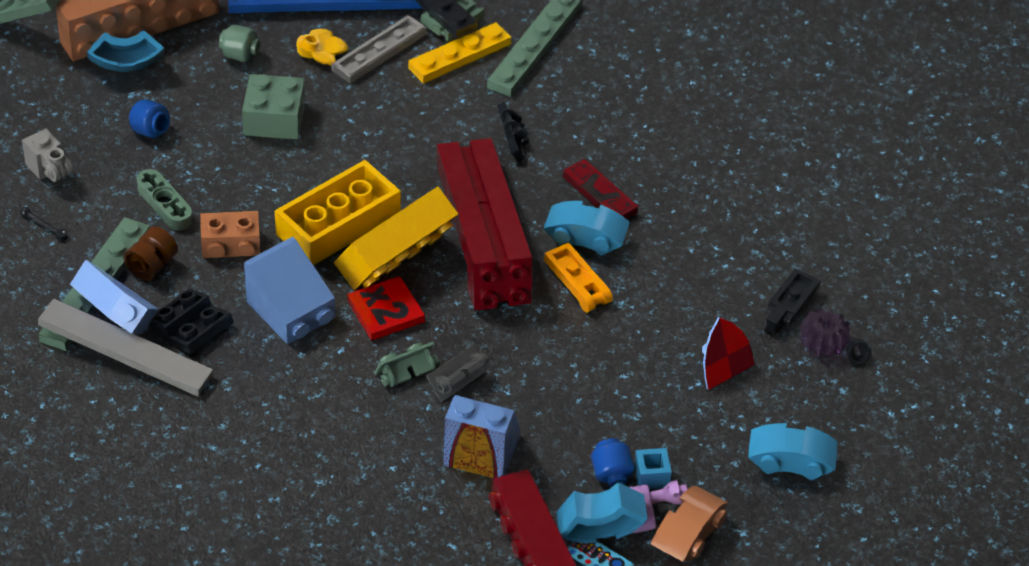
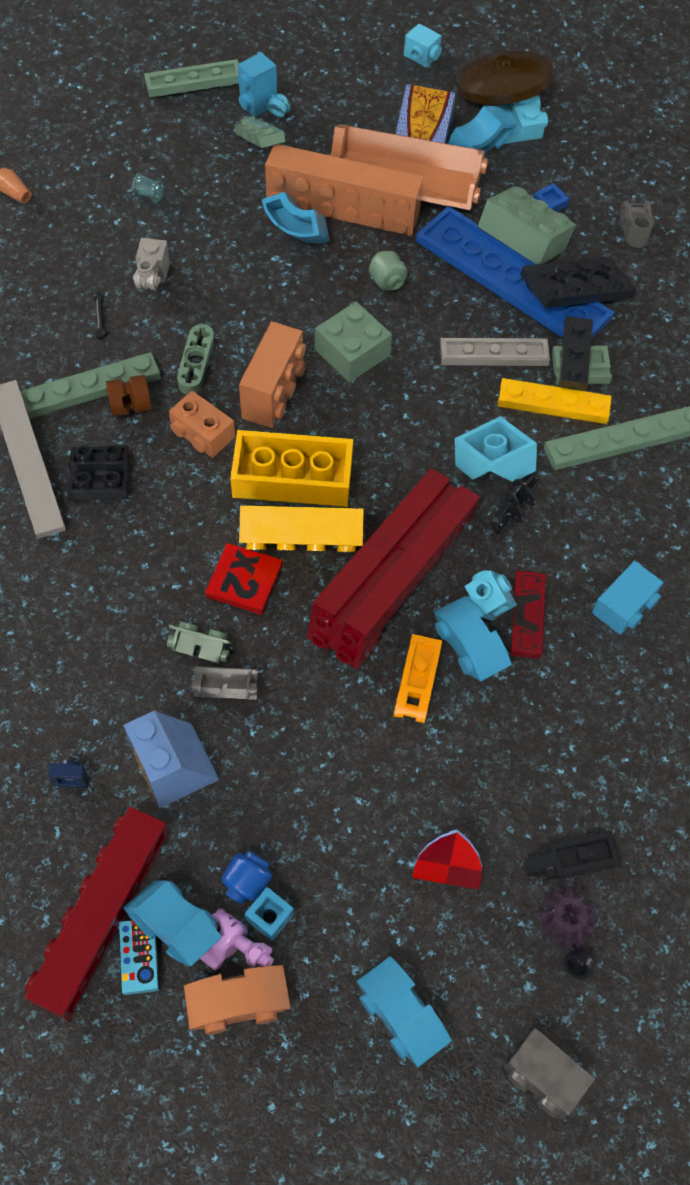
camera: 45 degrees right, 15 degrees up
(113, 298) = (53, 417): light blue slope -> none
(149, 118) = (255, 285): blue head -> none
(248, 163) = (272, 375): none -> nougat brick
(288, 291) = (178, 506): medium blue slope -> none
(321, 46) = (453, 318): yellow plate -> none
(422, 502) = (68, 774): none -> dark blue plate
(465, 102) = (496, 448): none -> medium azure slope
(566, 182) = (491, 593): none -> medium azure brick
(653, 135) = (627, 598): none -> dark azure brick
(908, 413) = (548, 1075): none -> flat silver brick

